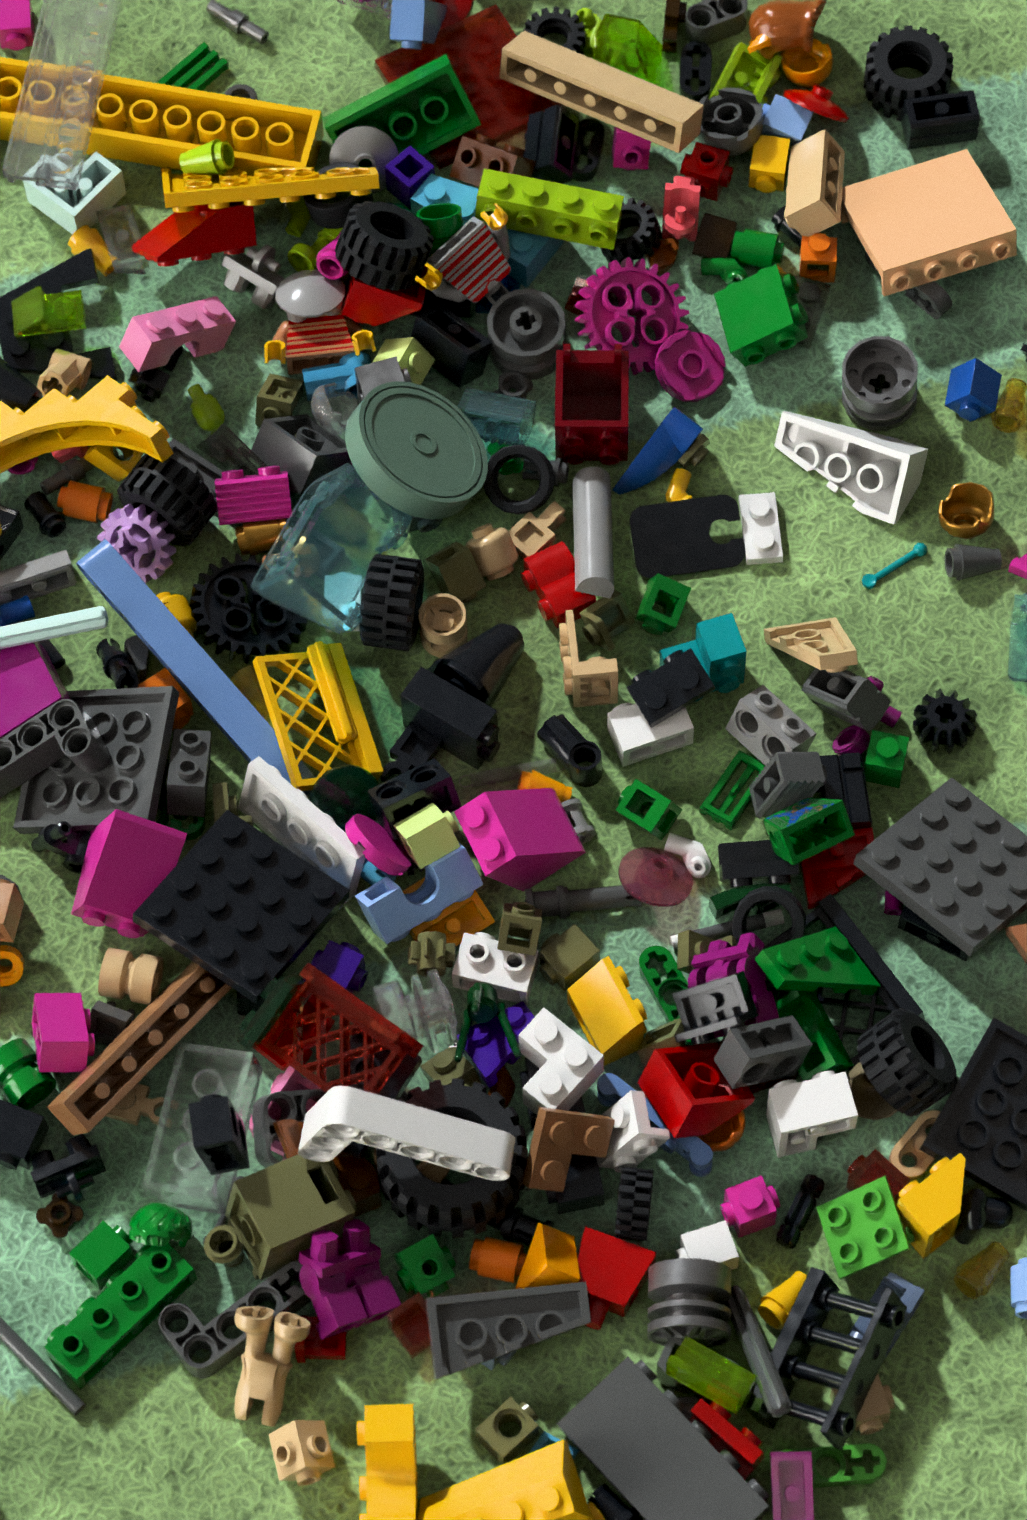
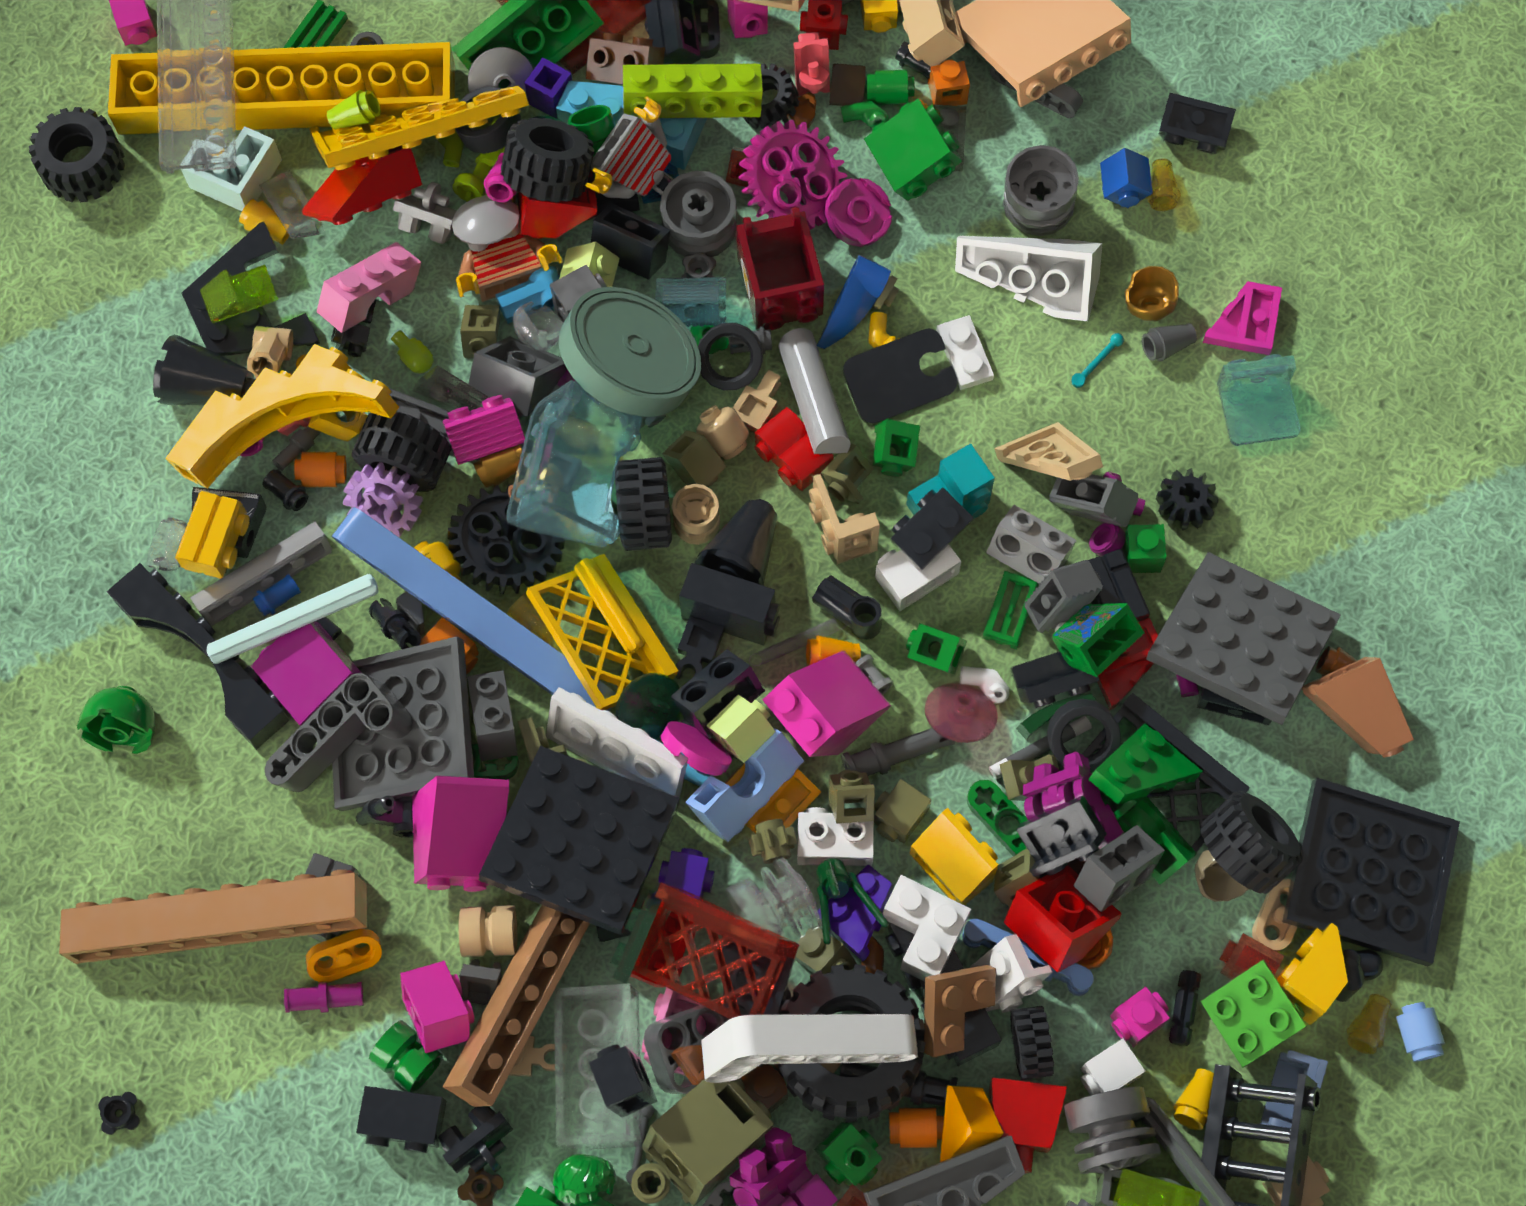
camera: 15 degrees left, 5 degrees up
(809, 1110) = (1168, 915): white brick -> none

